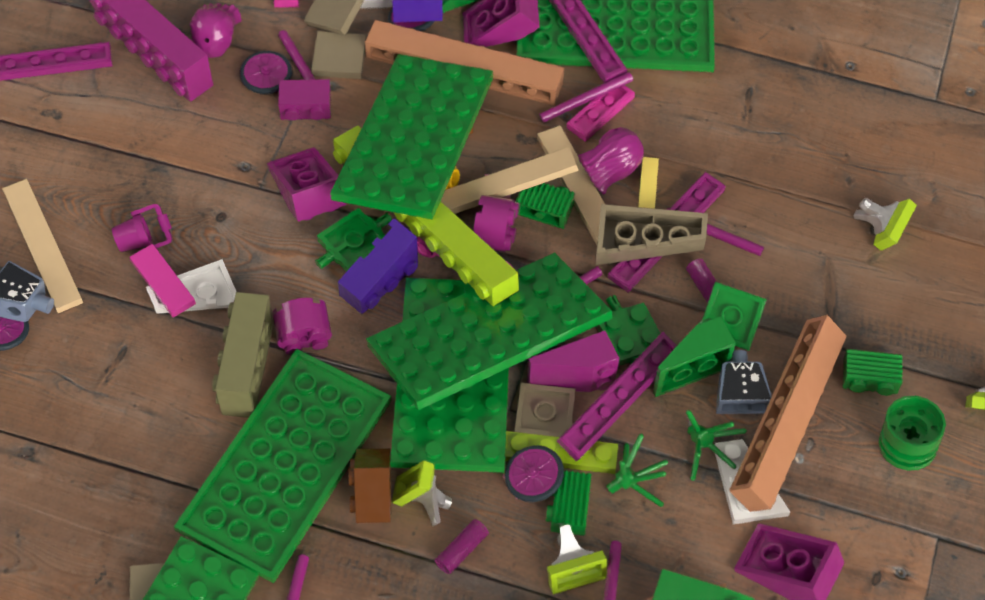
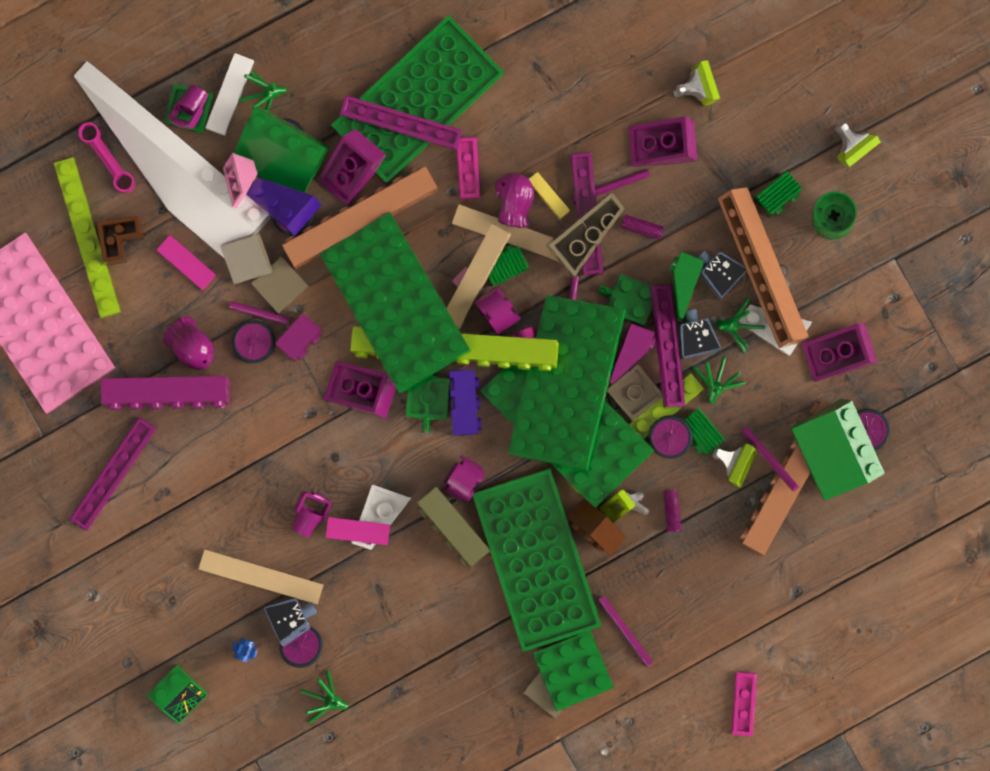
camera: 50 degrees left, 25 degrees up
(586, 97) = (454, 170): magenta bar -> none
(657, 417) = (697, 336): none -> torso
(738, 310) = (676, 235): green tile -> none
(804, 237) = (663, 142): none -> magenta slope

